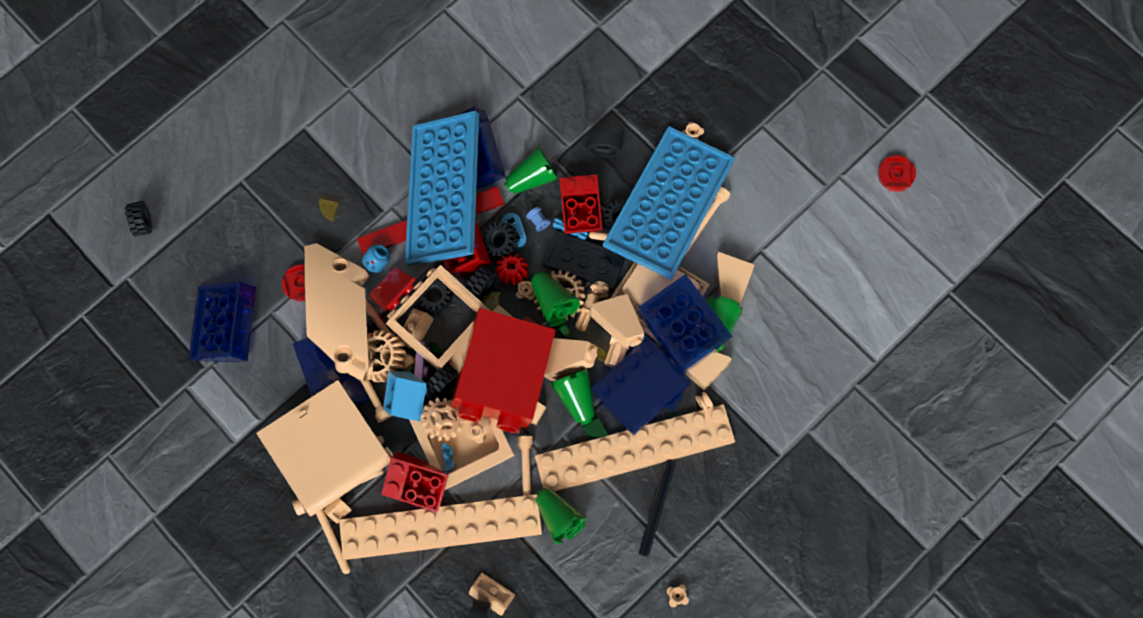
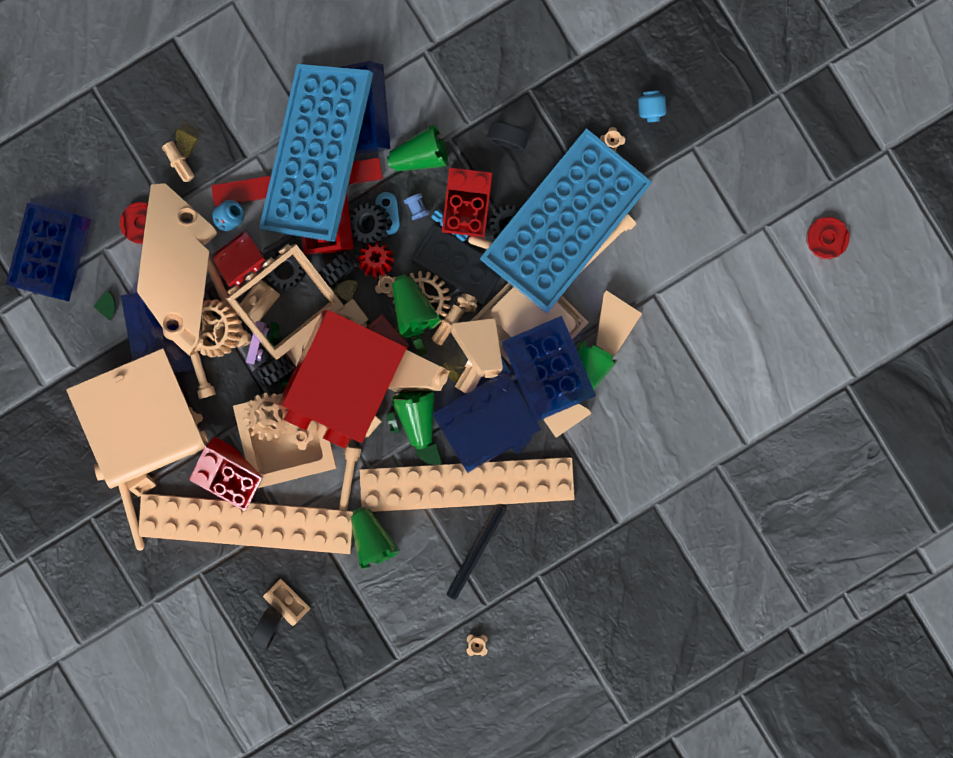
camera: 10 degrees right, 15 degrees up
(281, 359) = (106, 305): none -> dark green tile
(324, 224) = (178, 161): none -> light nougat axle
(404, 395) = (232, 380): dark azure slope -> none
(448, 453) = (267, 449): dark azure piece -> none
(556, 407) = (392, 421): none -> dark green tile
(704, 401) = (551, 450): light nougat bush -> none
(719, 97) = (652, 105): none -> dark azure head

